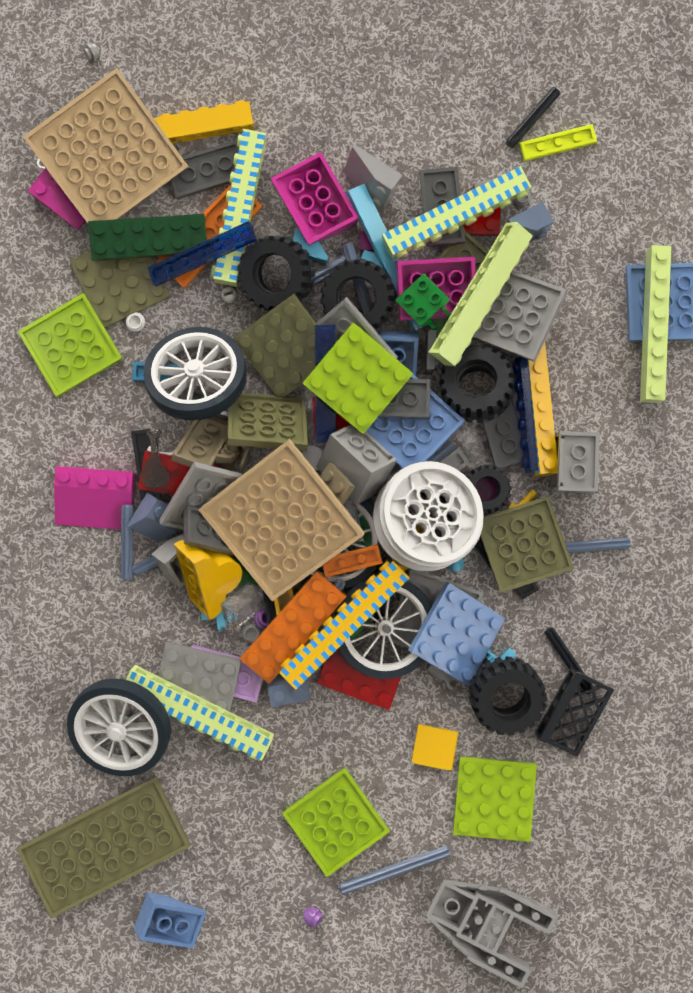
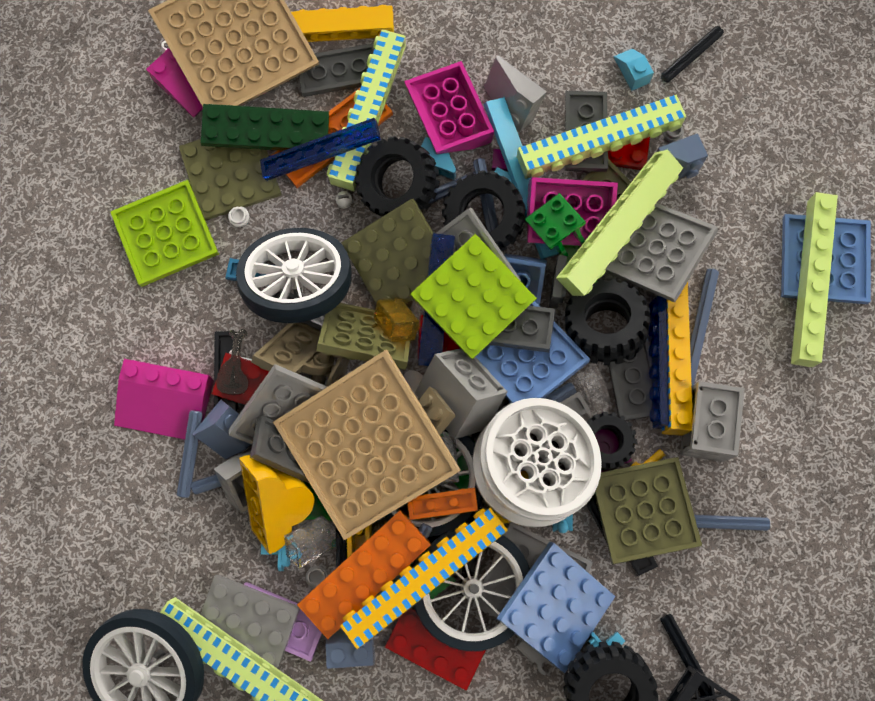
camera: 15 degrees right, 10 degrees down
(260, 619) = (329, 561): medium lavender plate -> none
(291, 404) = (396, 320): none -> clear yellow brick
(480, 138) = (634, 68): none -> medium azure slope
(558, 142) = (717, 82): neon yellow tile -> none
(560, 371) = (701, 320): none -> sand blue axle

